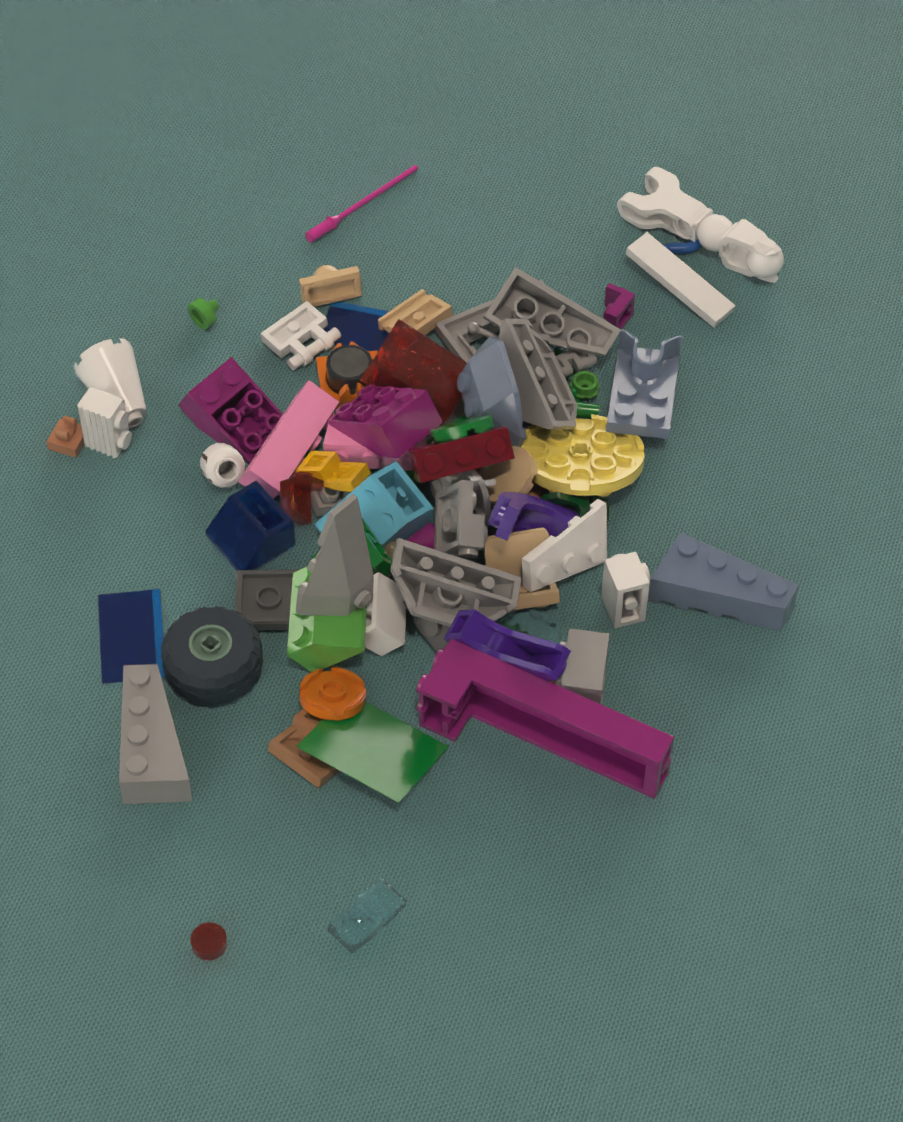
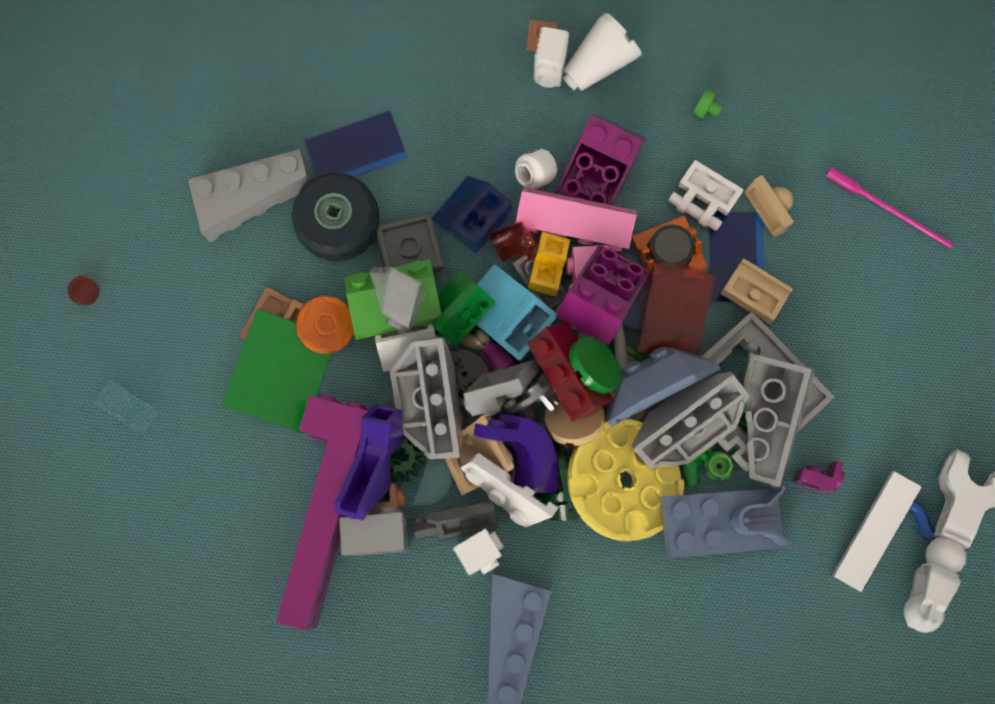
camera: 80 degrees right, 25 degrees up
(586, 601) = (456, 521): none -> dark grey hinge

